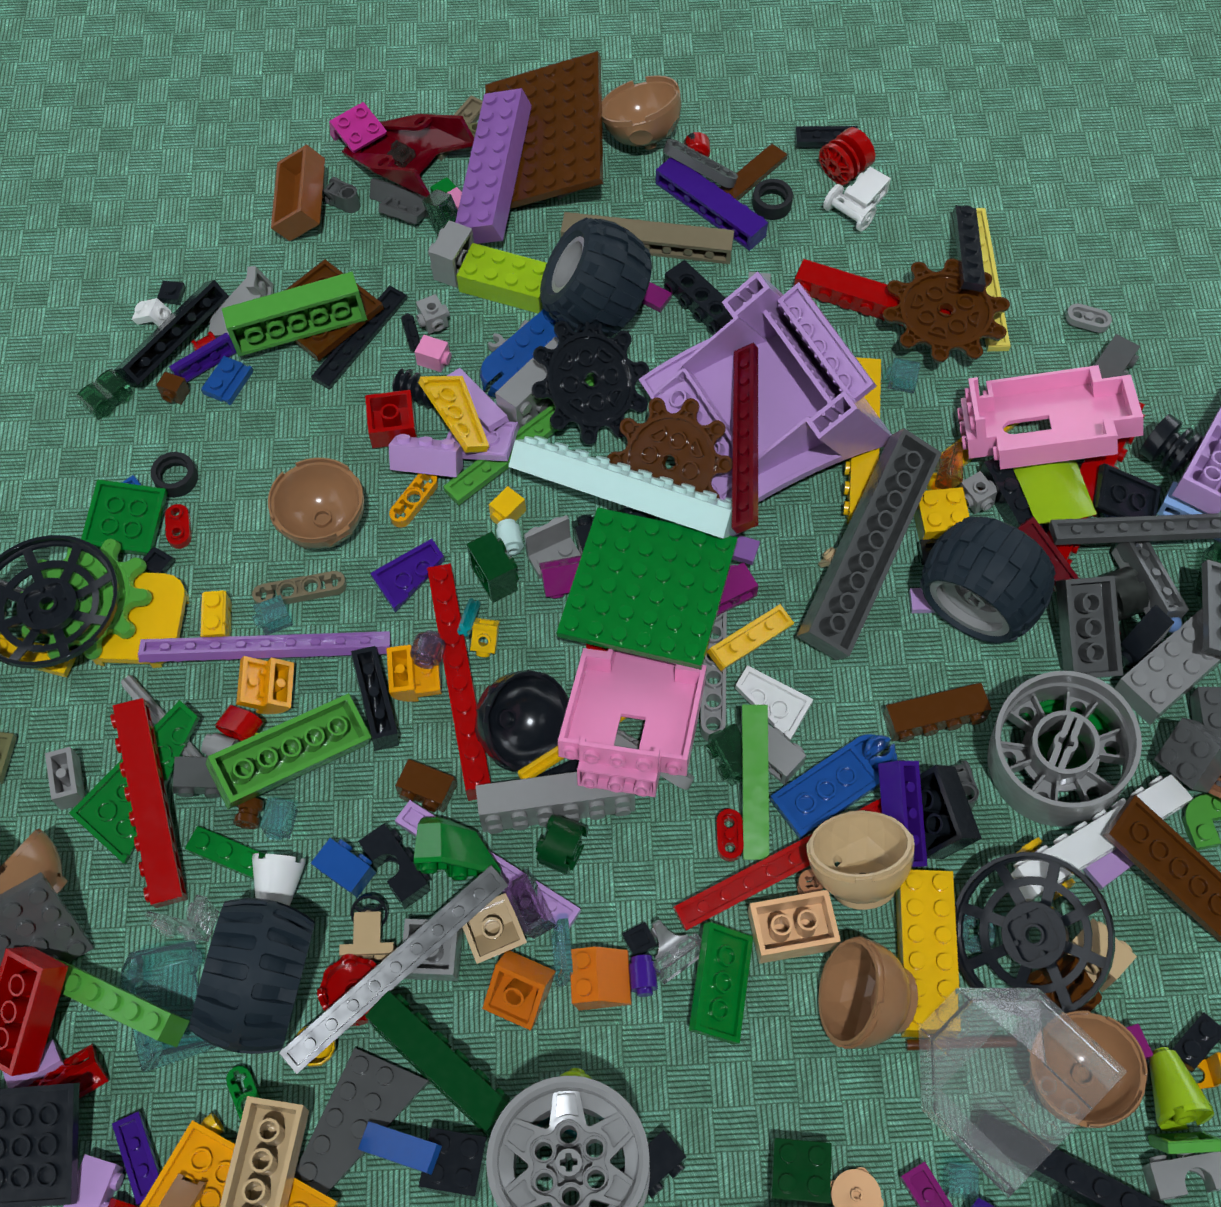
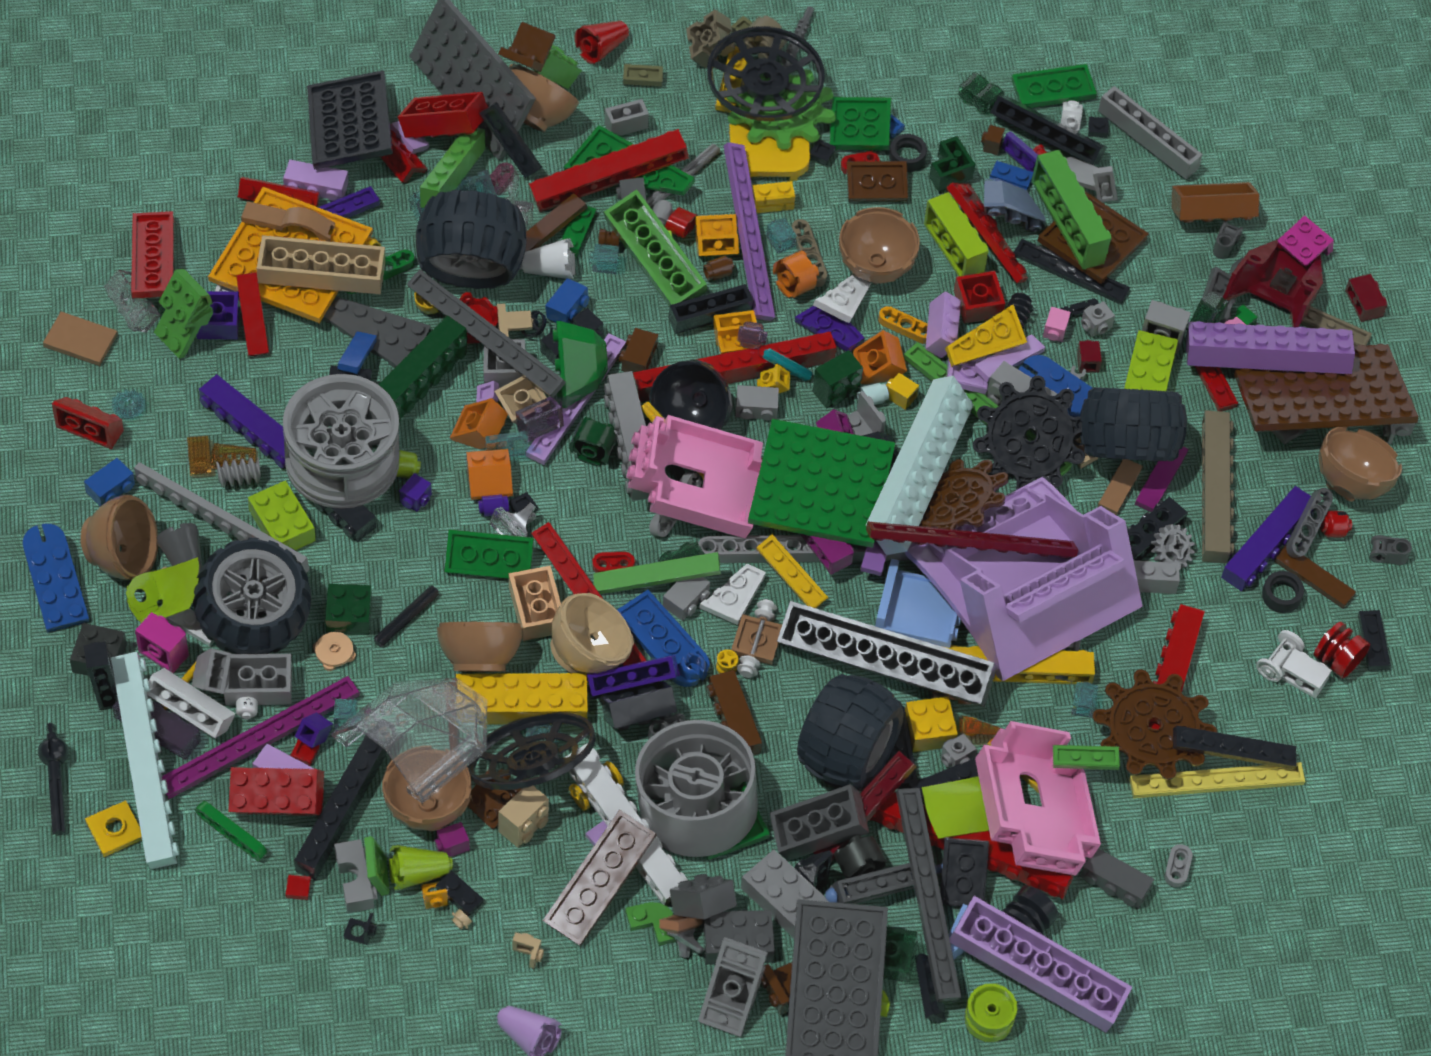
camera: 80 degrees right, 5 degrees down
(80, 922) = (510, 140): none -> black tile
(108, 325) = (1054, 86): none -> green plate
(131, 941) = (503, 181): none -> clear pink beam
(193, 242) = (1150, 132): none -> light grey brick
(204, 425) = (953, 164): none -> dark green brick
(208, 871) = (554, 222): none -> reddish brown tile
(211, 507) = (877, 181): none -> reddish brown plate
(269, 373) = (1014, 202): none -> sand blue brick
(299, 400) = (987, 227): none -> red wing
(308, 432) = (955, 235): none -> lime brick
(311, 687) = (718, 268): none -> reddish brown brick
(337, 600) = (795, 274): none -> orange brick
(378, 552) = (844, 299): none -> white wing
(429, 93) = (1366, 297): none -> dark red brick
(460, 524) = (880, 358): none -> orange slope
(471, 976) = (487, 391): none -> lavender plate
(477, 328) = (1089, 356): none -> dark red brick
(511, 653) = (757, 402): none -> light grey brick
(525, 226) = (1217, 387): none -> red tile
(621, 1076) = (415, 493): none -> dark purple brick
(651, 326) = (1120, 486): none -> medium nougat tile
(722, 277) = (1173, 545): none -> light grey gear
(726, 110) = (1389, 550): none -> dark grey piece
(804, 515) = (916, 608): none -> light blue panel
(804, 1097) = (406, 616): none -> black axle
(835, 682) = (757, 639): none -> medium nougat plate
(870, 712) = (728, 657): none -> yellow wheel
(992, 370) = (1086, 757): none -> bright green tile

